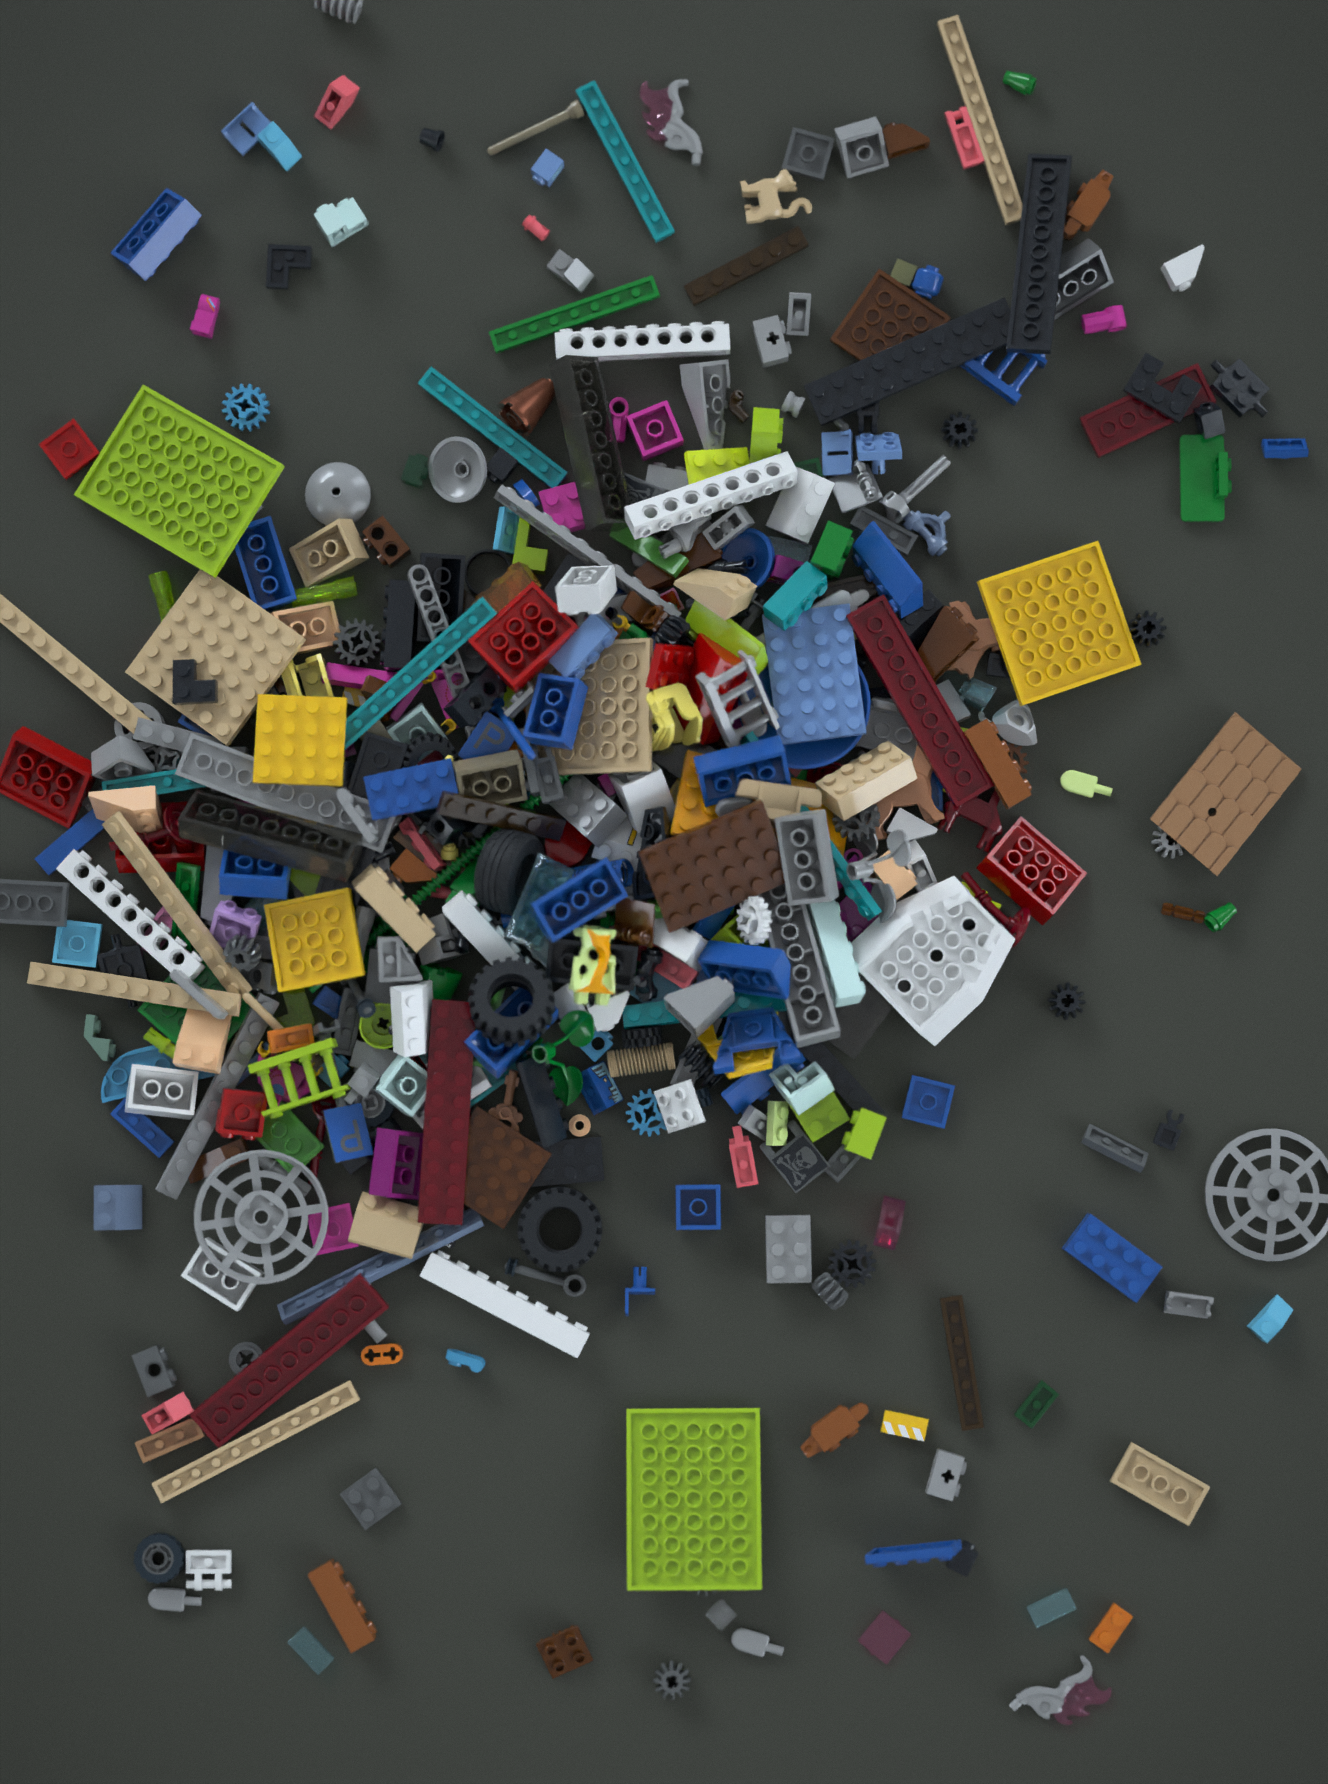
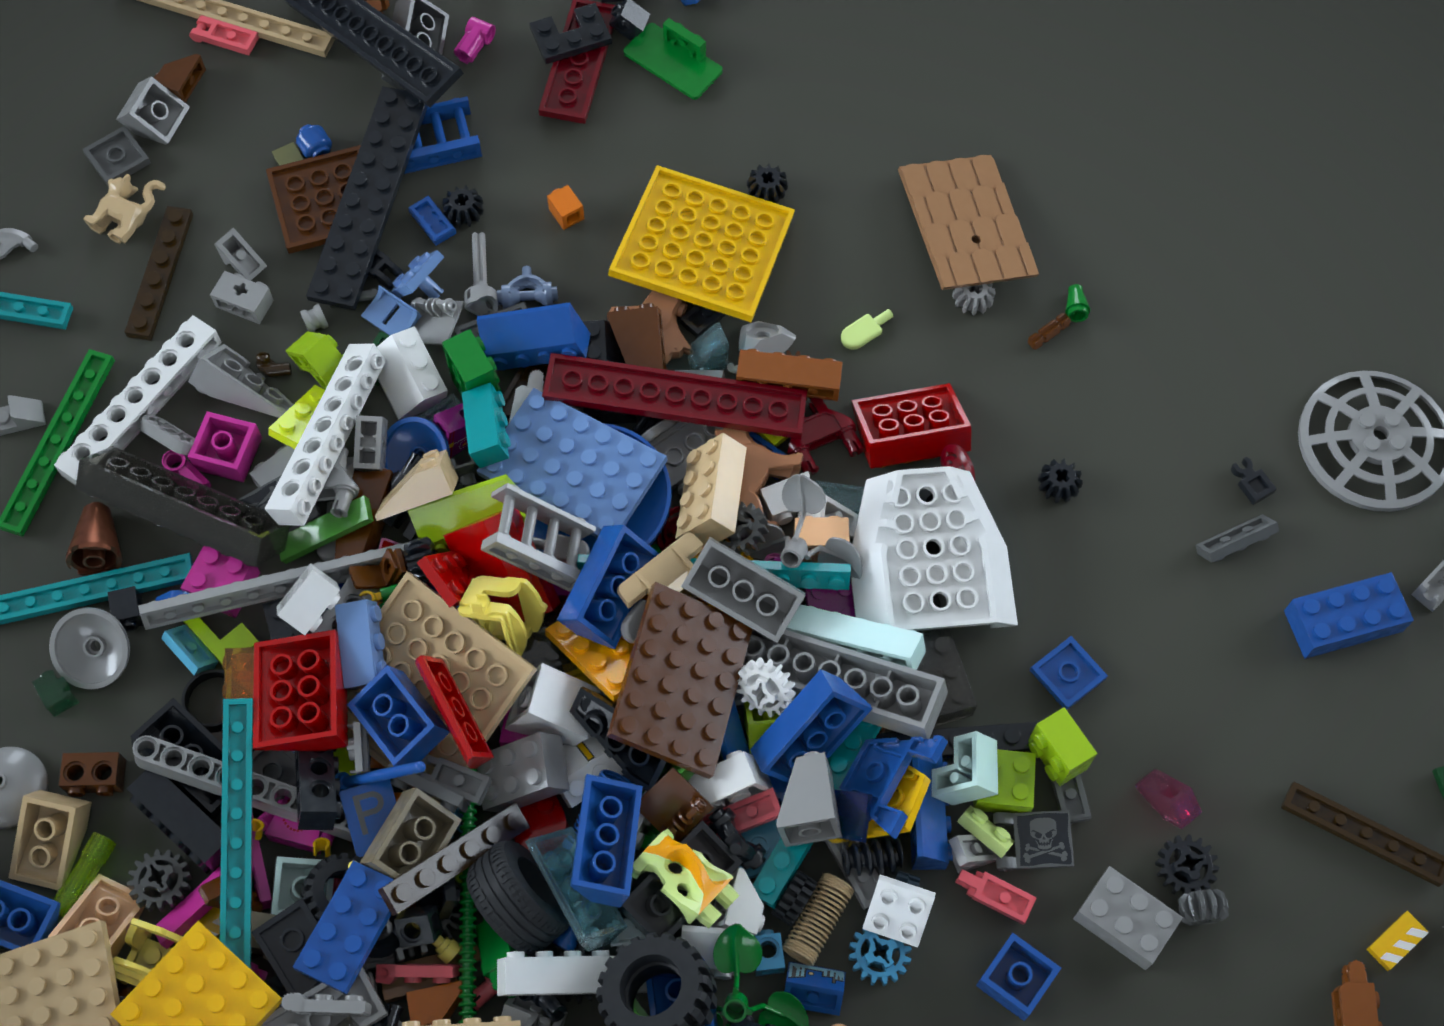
camera: 55 degrees left, 20 degrees down
(585, 743) = (454, 711): none -> red slope
(633, 373) = (166, 434): none -> light grey beam
(715, 1035) = (853, 814): none -> clear blue piece
(932, 417) = (432, 220): none -> blue plate
(940, 860) = (847, 495): none -> clear light blue tile
(1016, 501) = (565, 207): none -> orange brick

